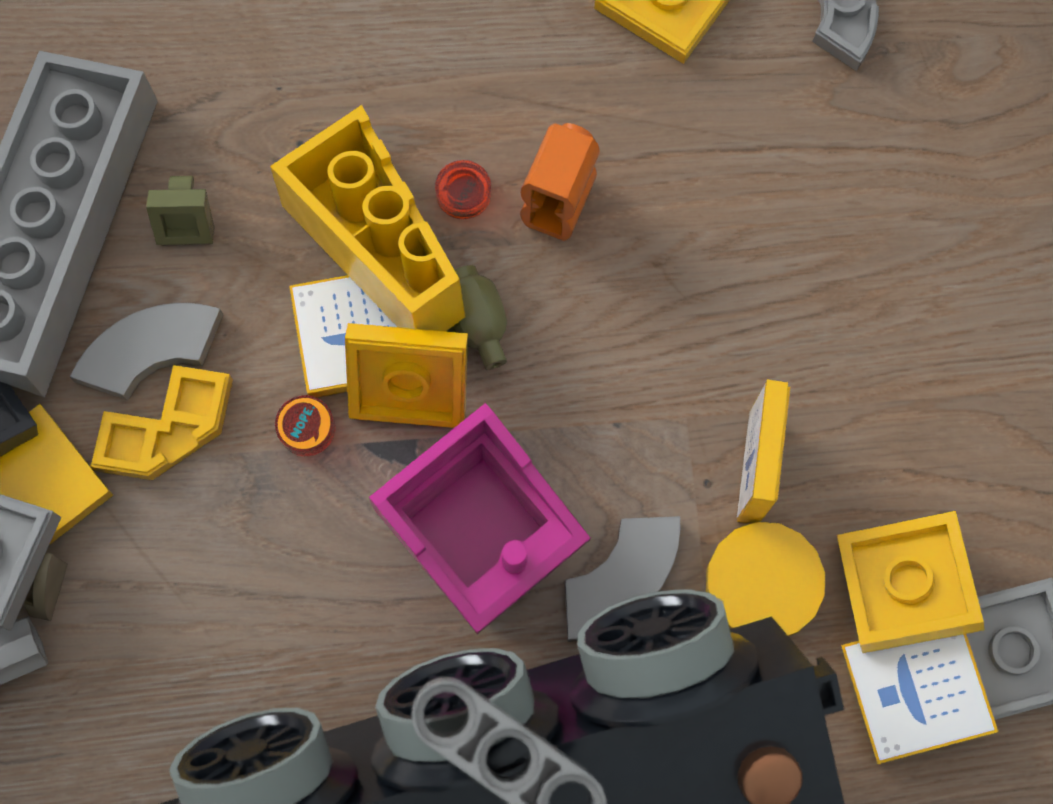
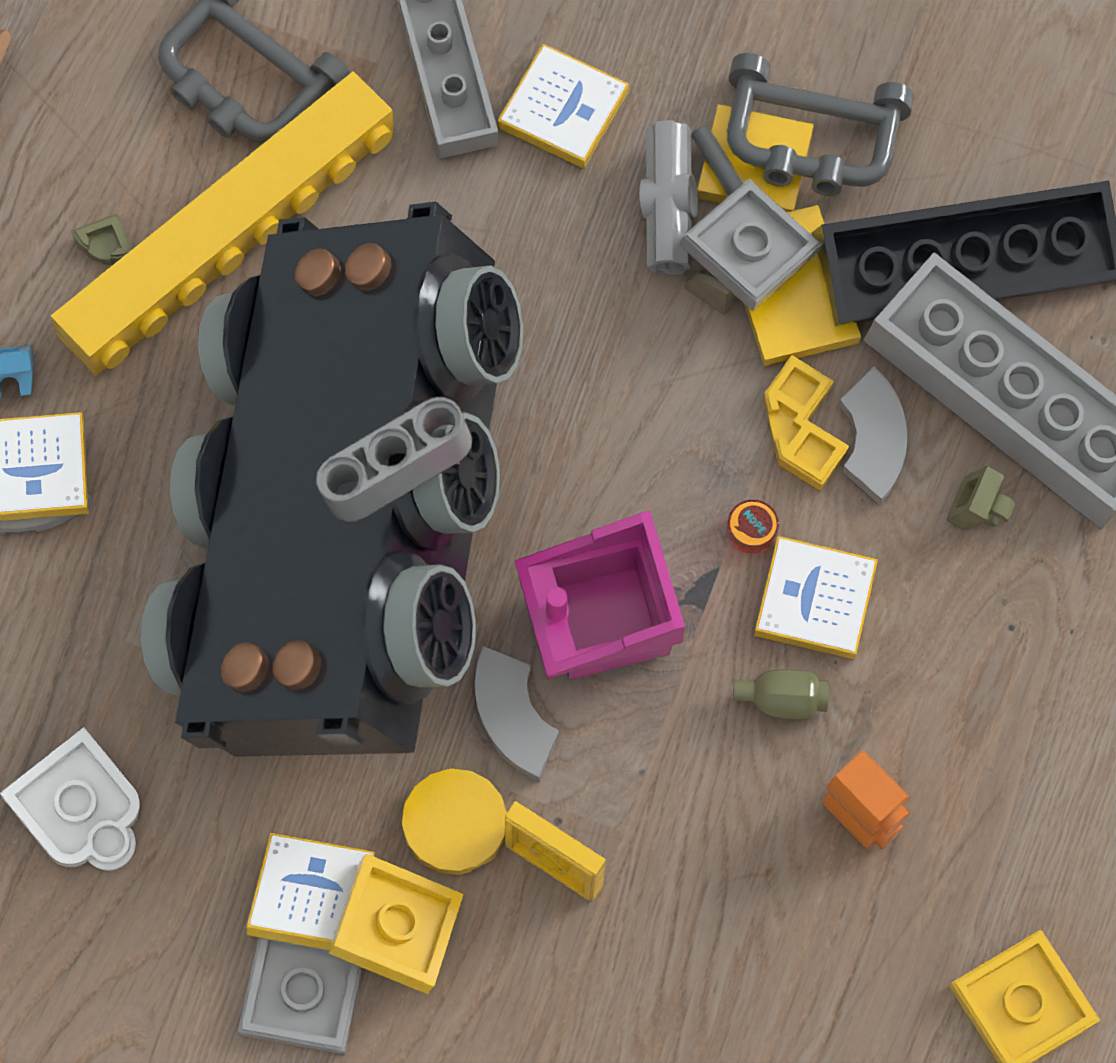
camera: 115 degrees right, 5 degrees down
(368, 223) = (900, 632): yellow wedge -> none
(406, 375) = (749, 606): yellow tile -> none
(463, 189) = (906, 738): clear red tile -> none

